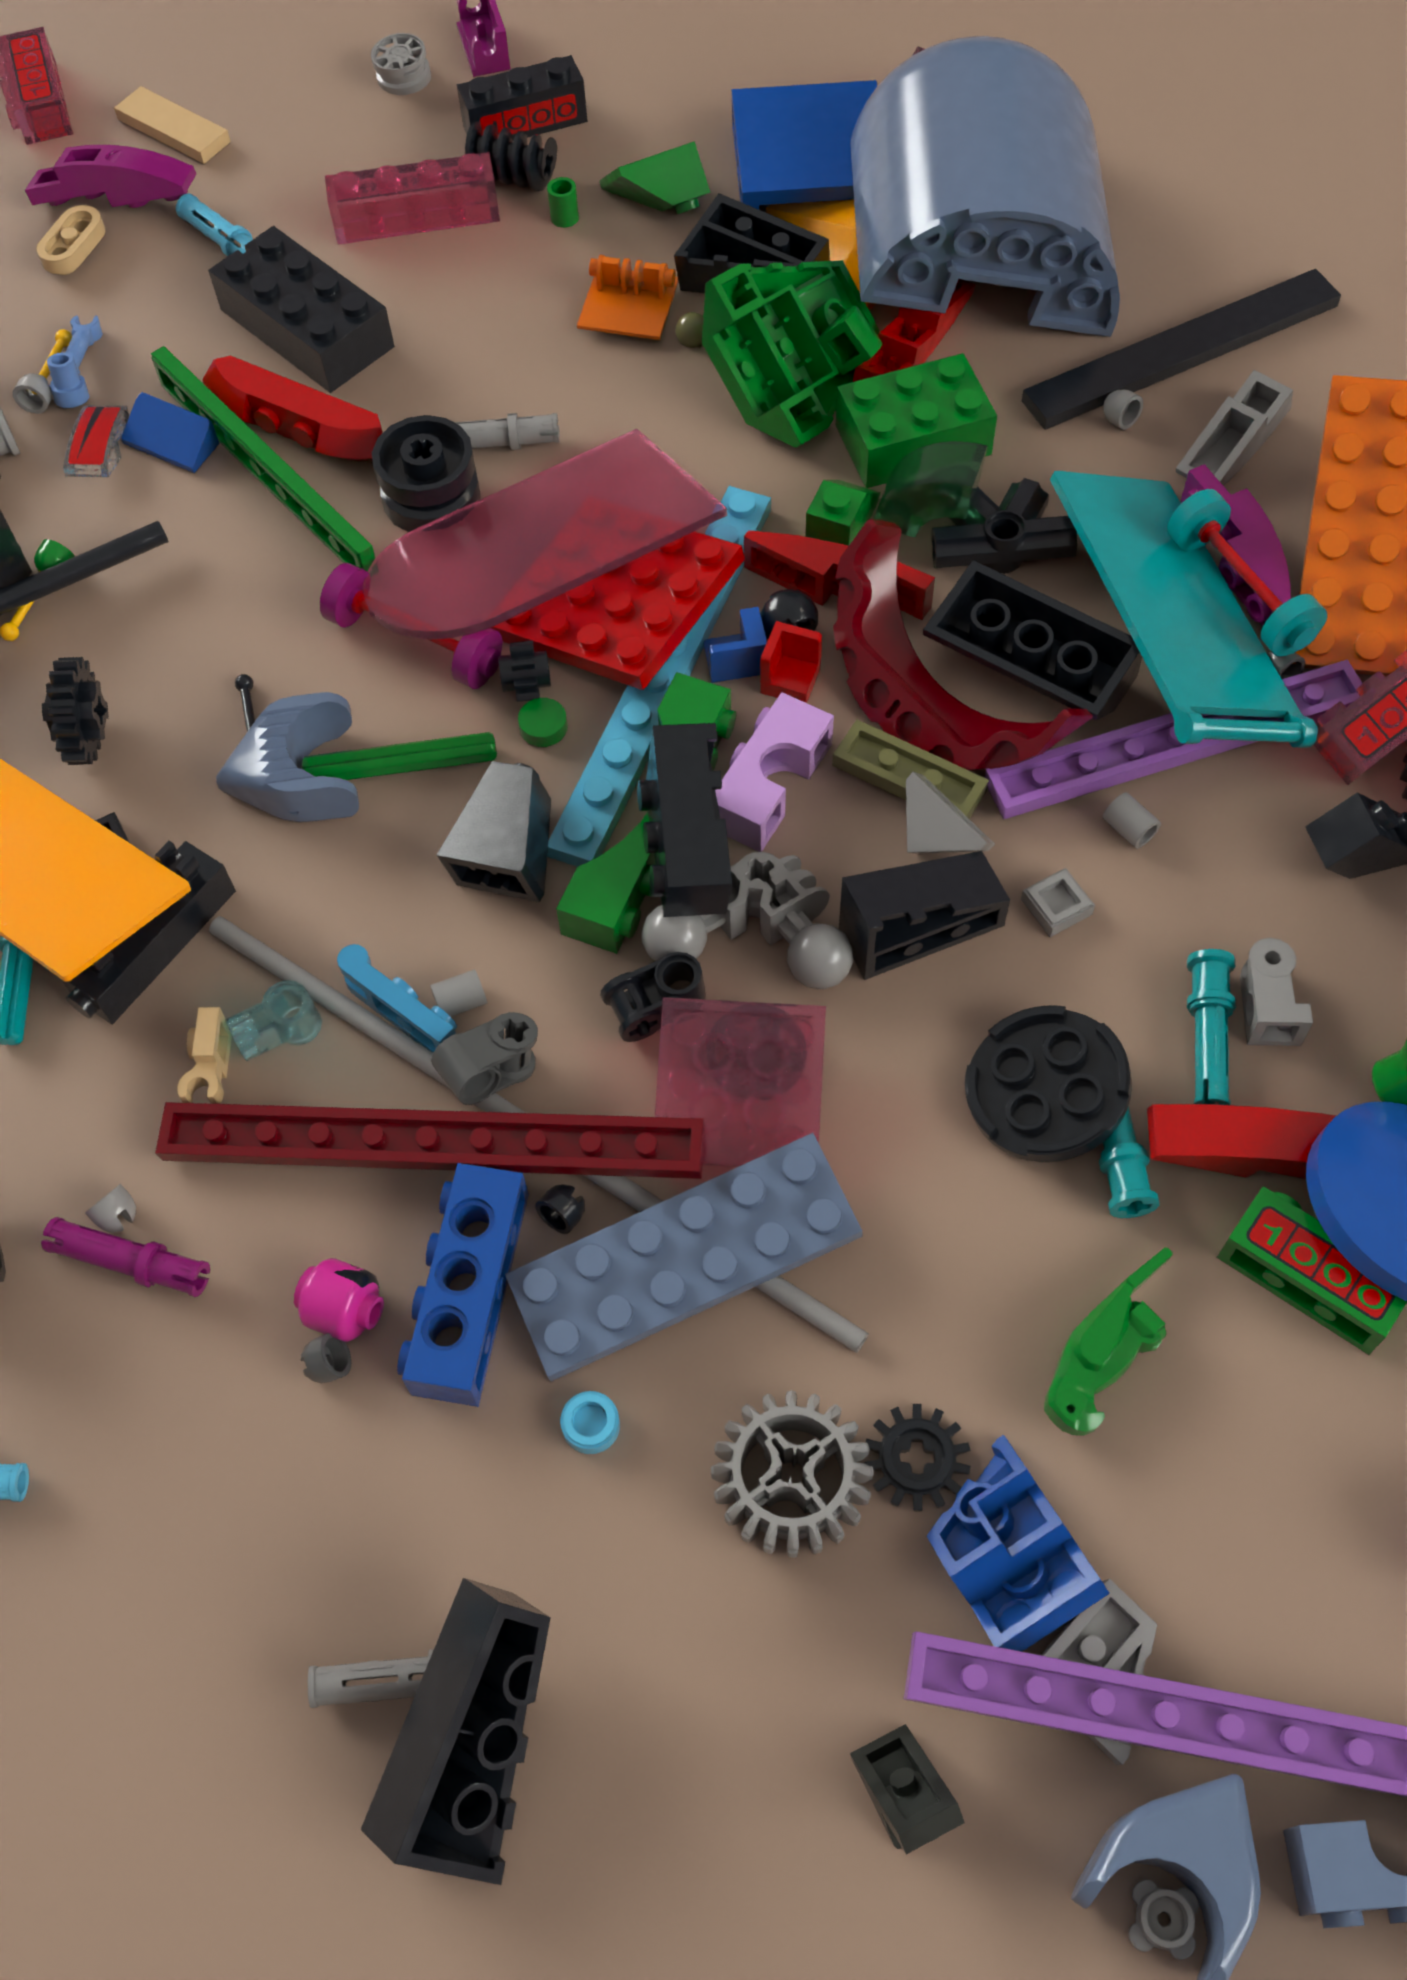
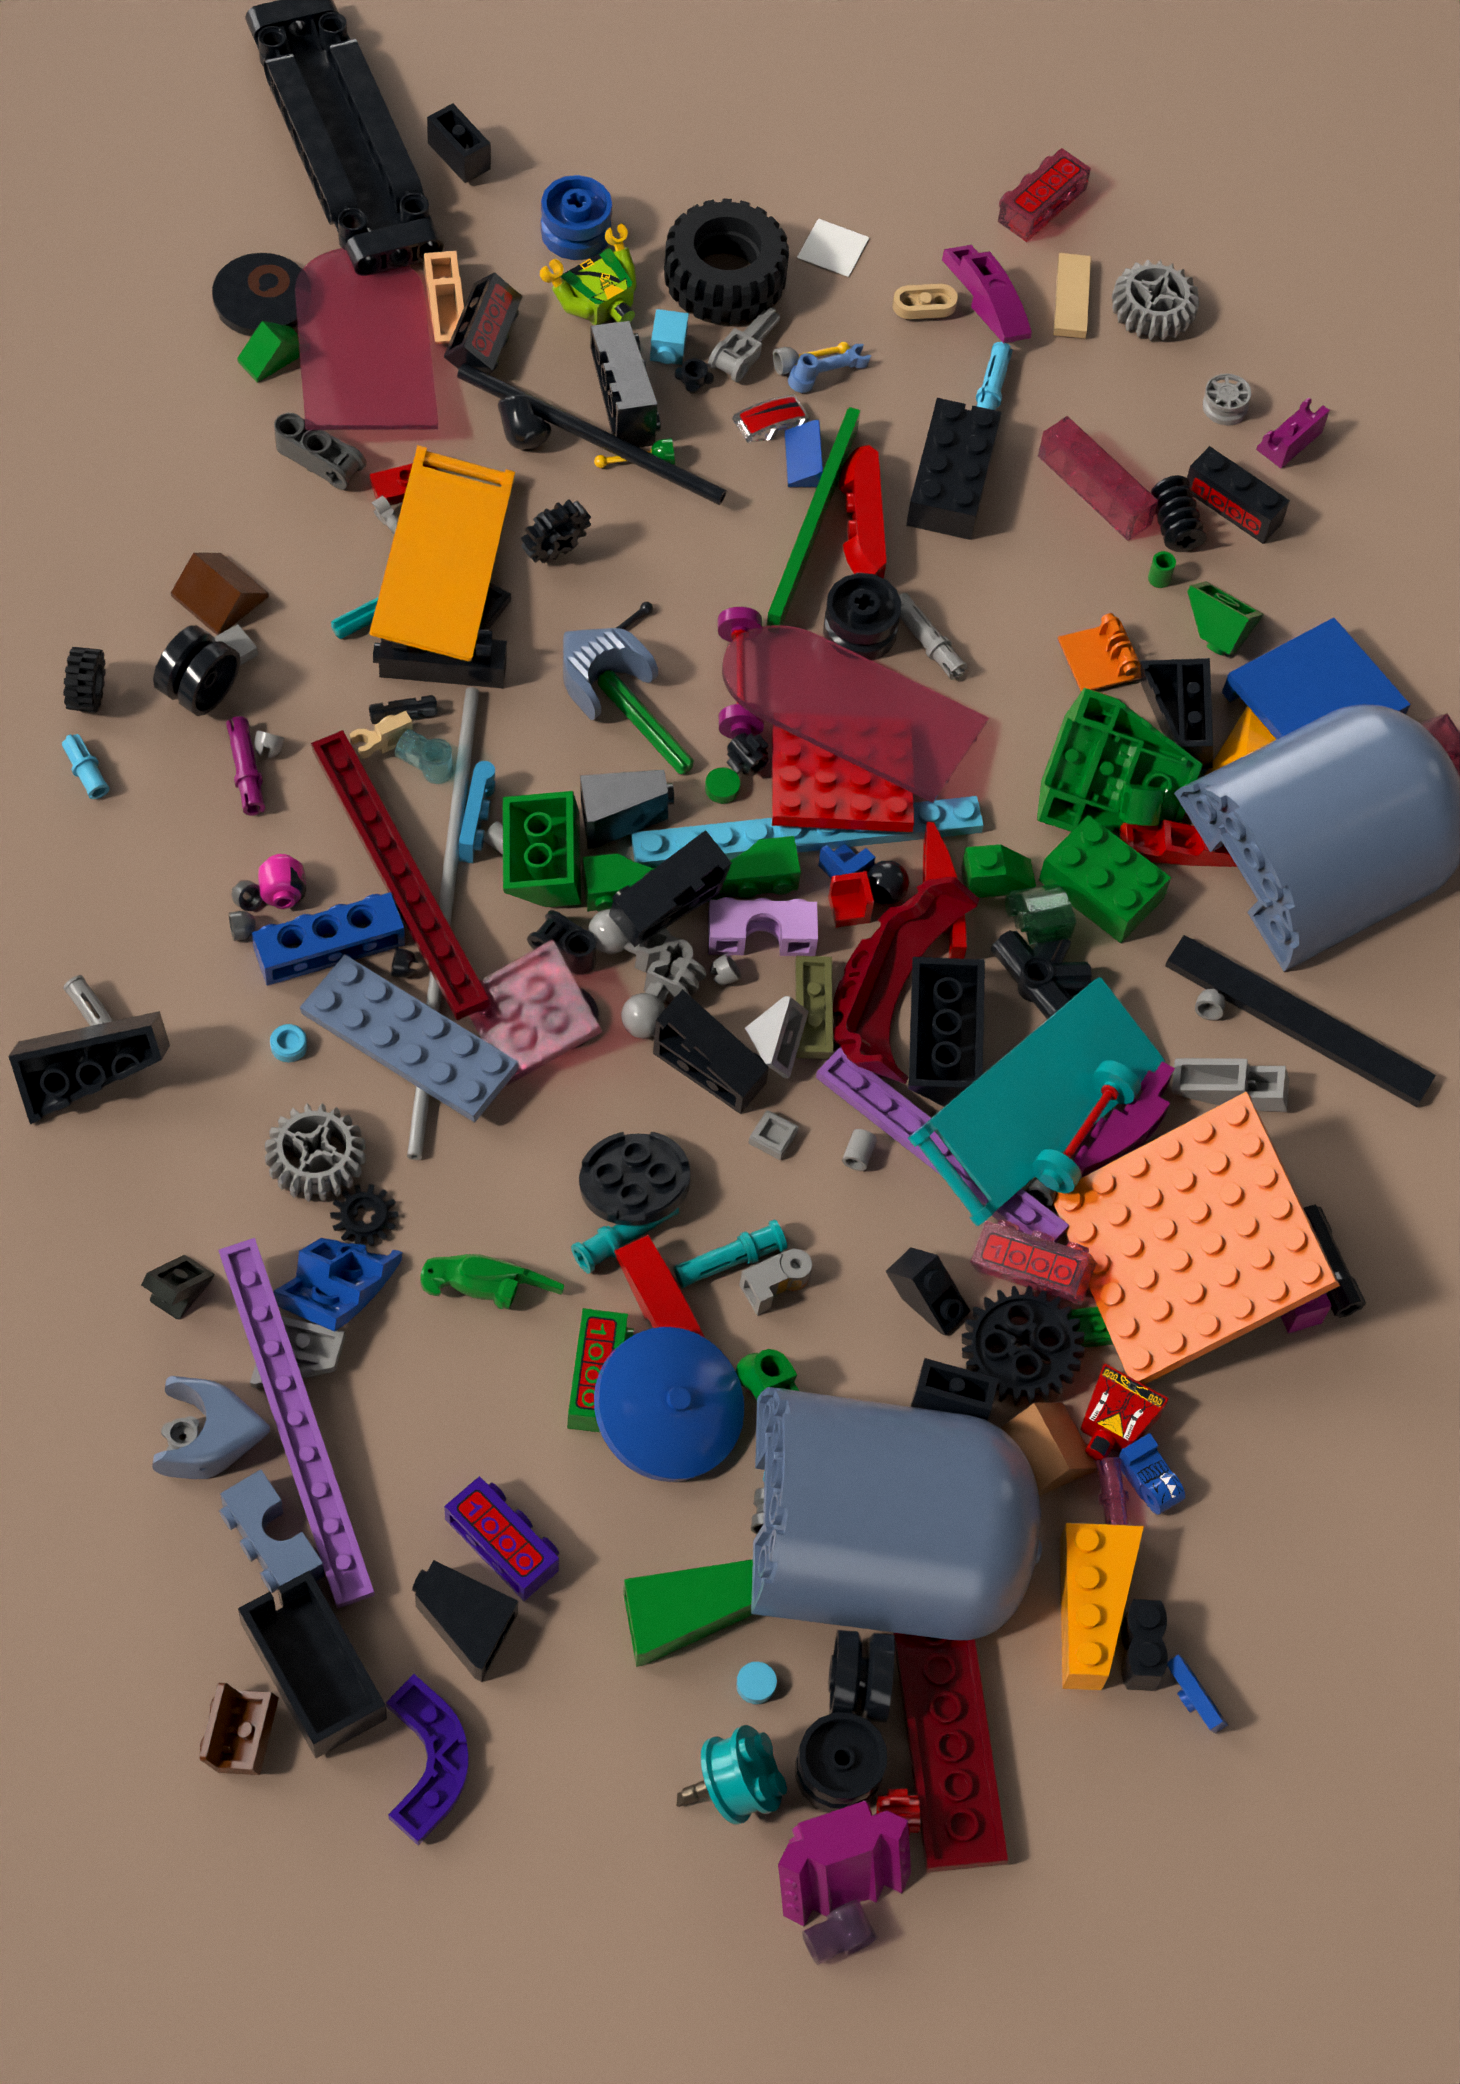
camera: 50 degrees right, 0 degrees up
(168, 1047) = (425, 706): none -> black axle
(239, 60) = (1155, 300): none -> light grey gear
(368, 1391) = (241, 924): none -> dark grey hinge
(485, 1062) = (465, 873): dark grey piece -> none
(511, 947) = (542, 848): none -> green slope
(802, 837) = (726, 970): none -> light grey hinge

